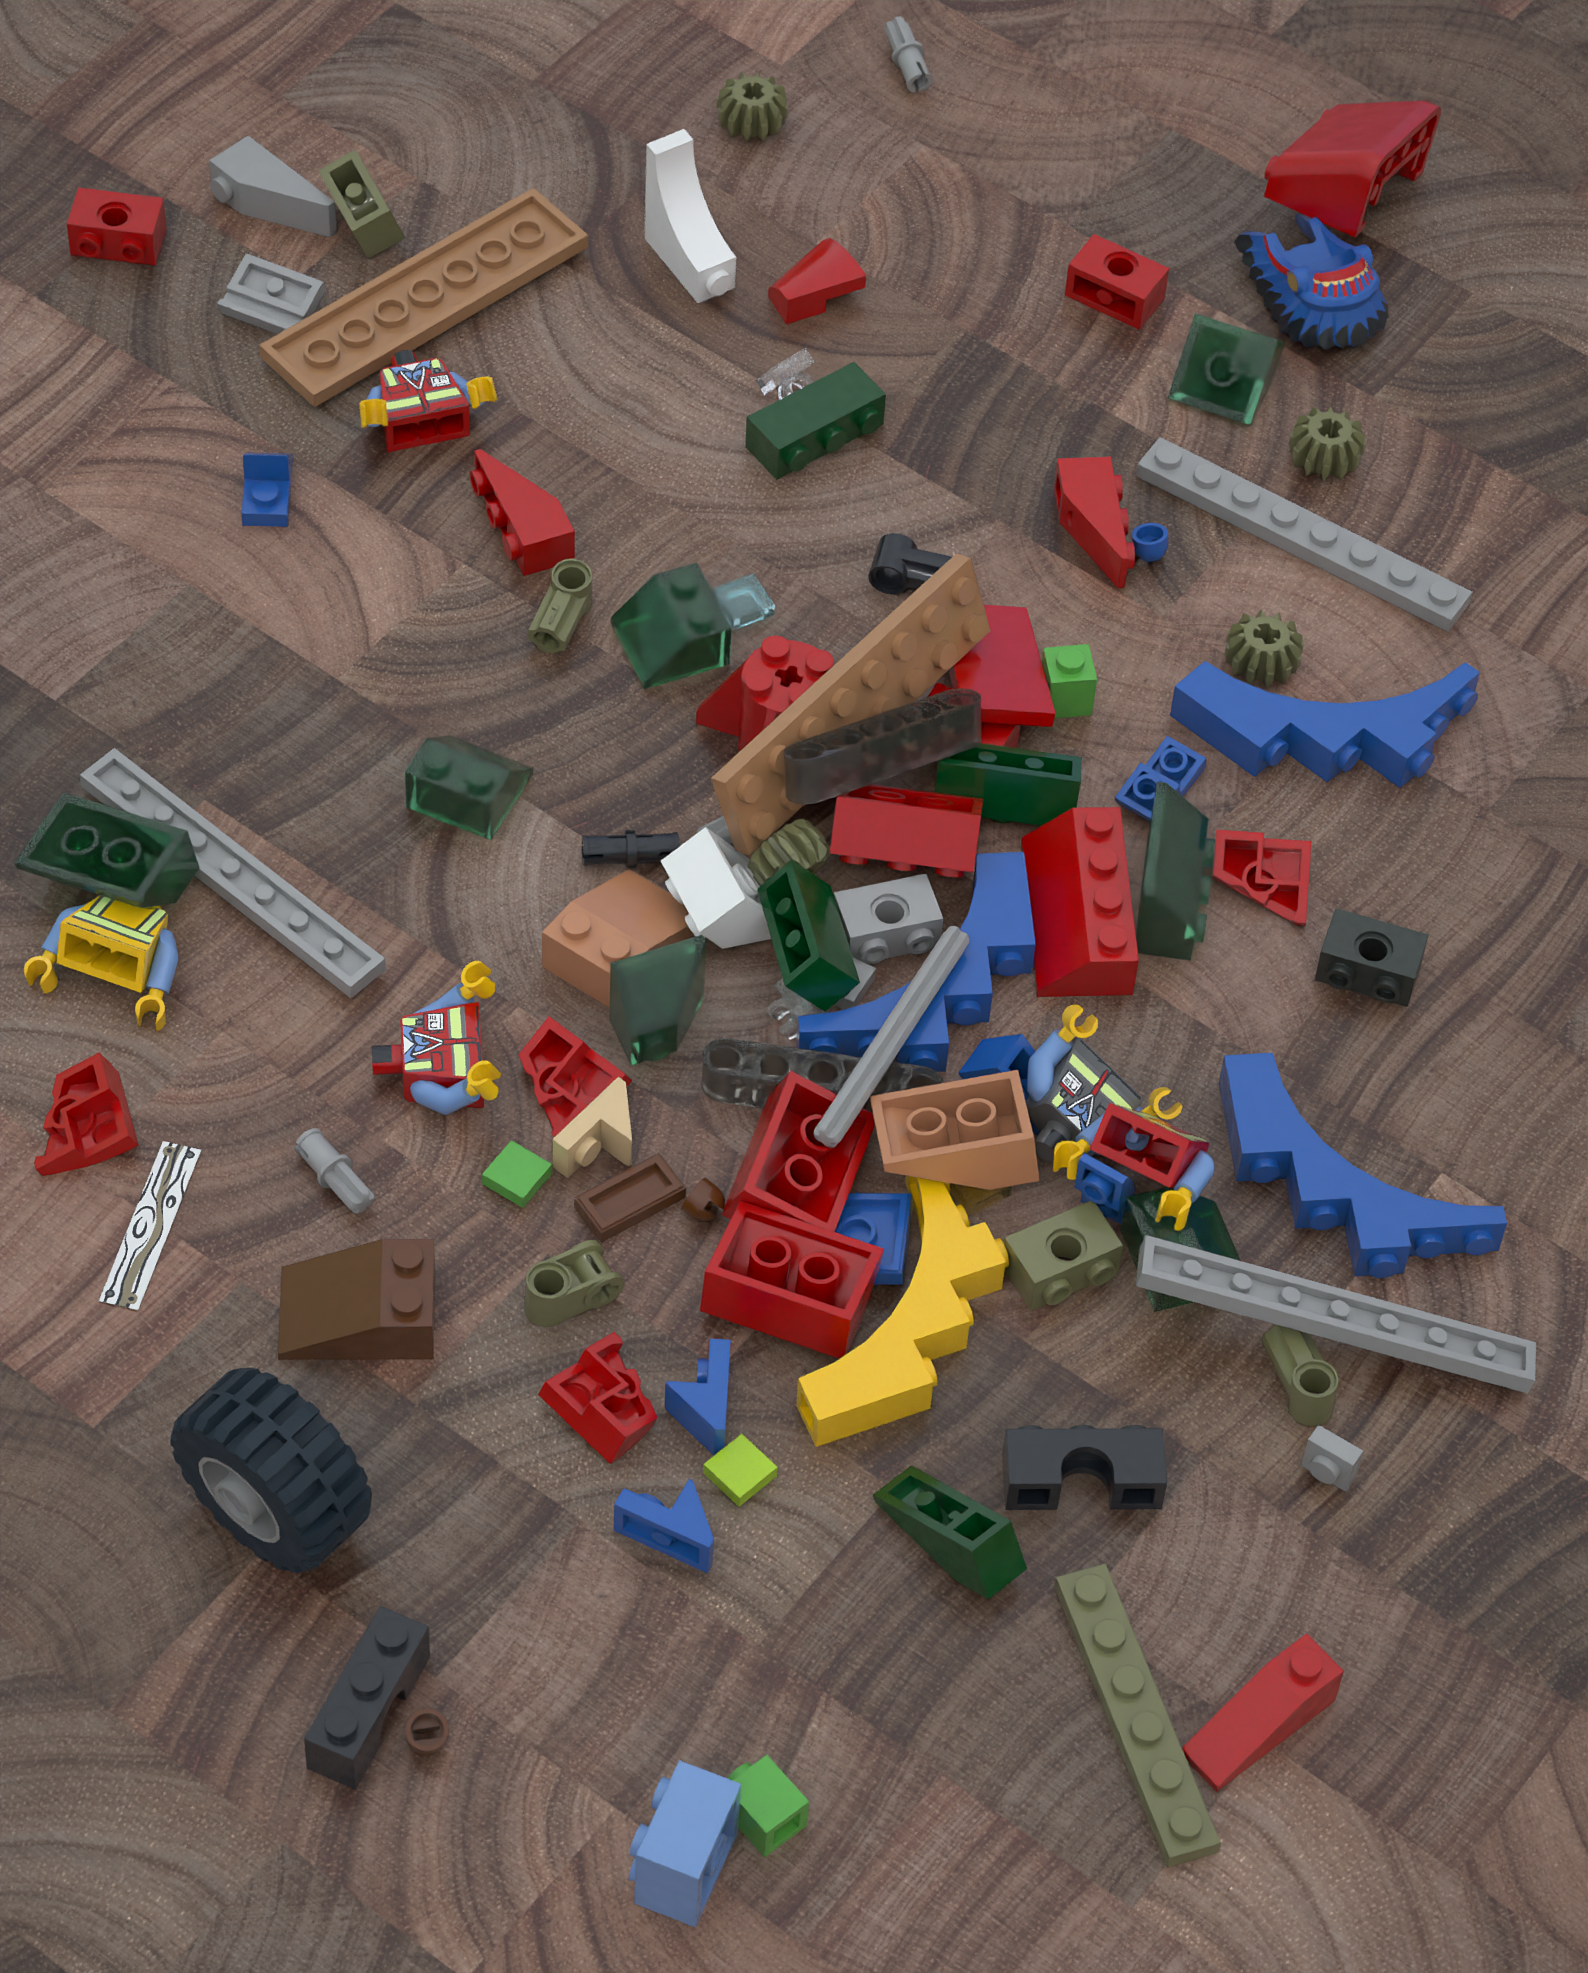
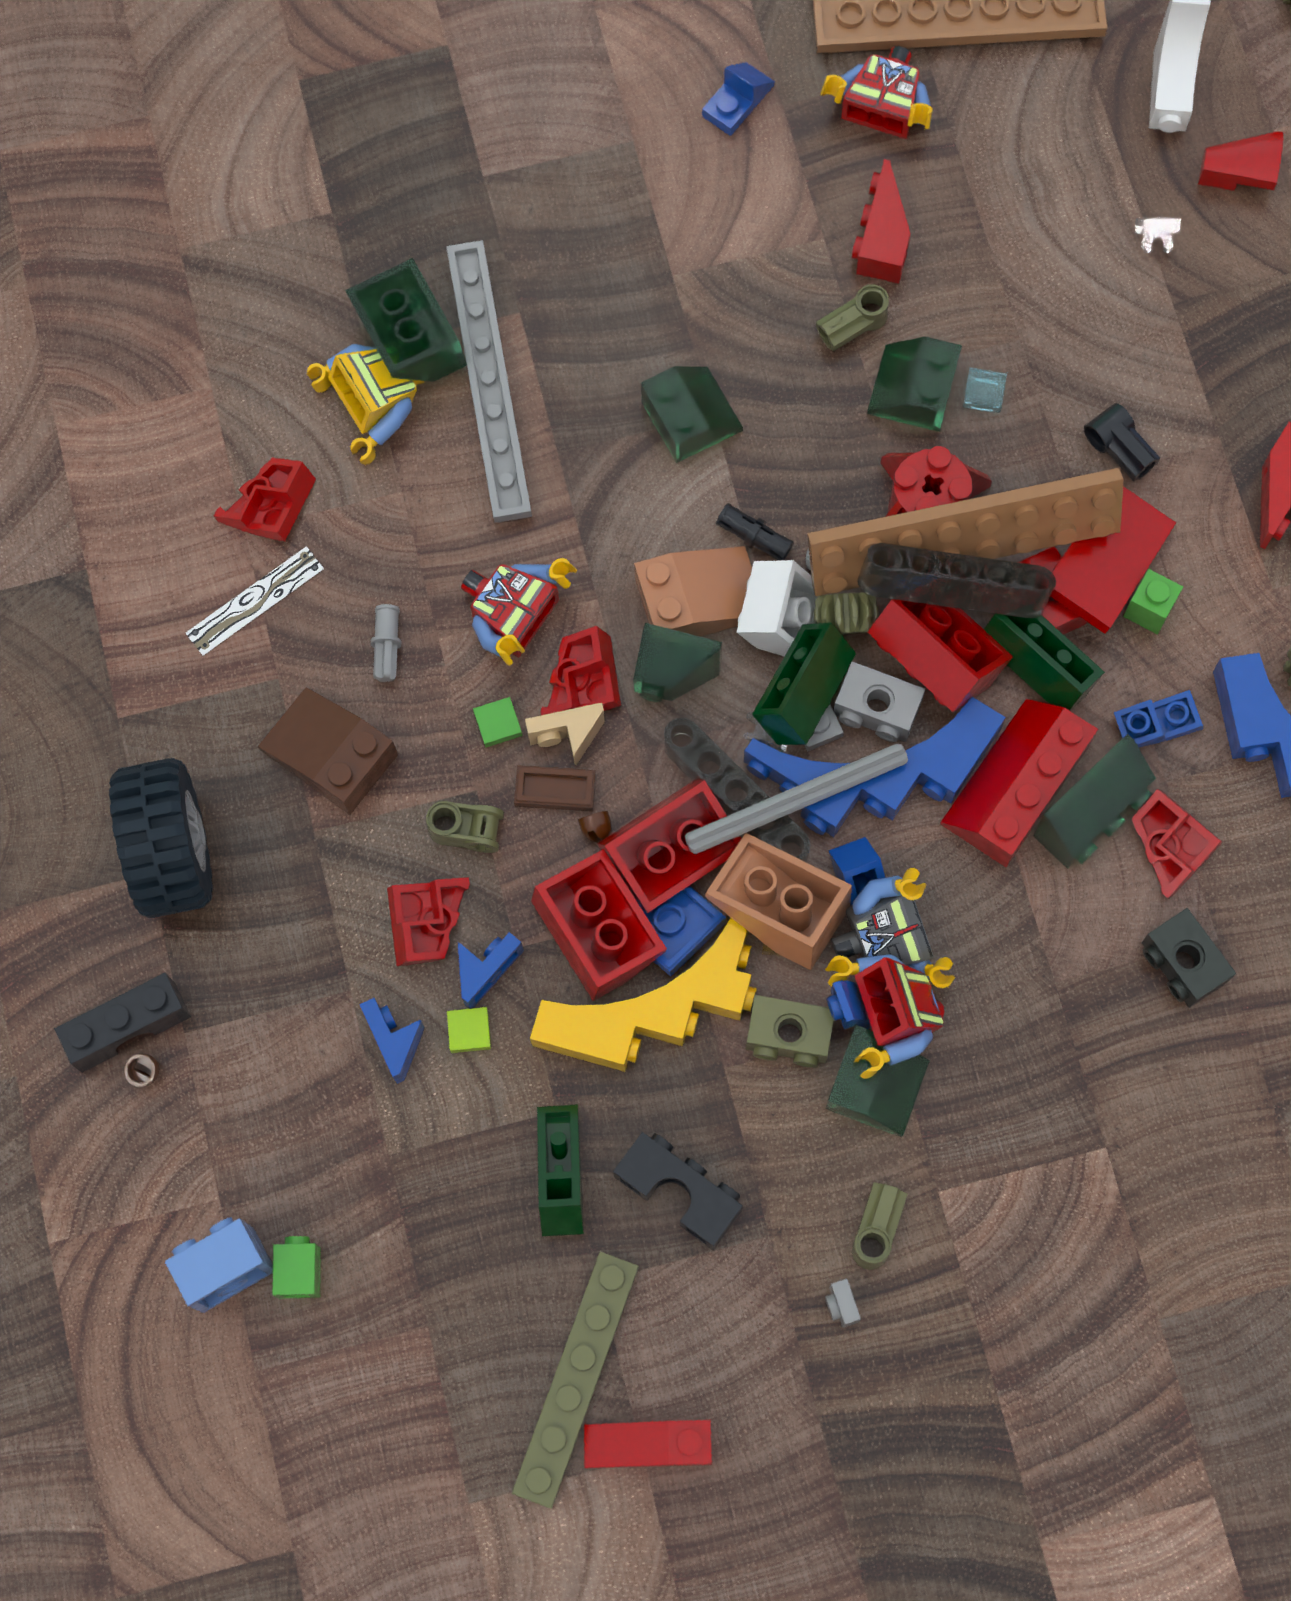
camera: 45 degrees right, 20 degrees up
(815, 420) = (1148, 278): dark green brick -> none
(1327, 1191) = (1005, 1108): blue arch -> none
(1336, 1314) = (926, 1211): light grey plate -> none

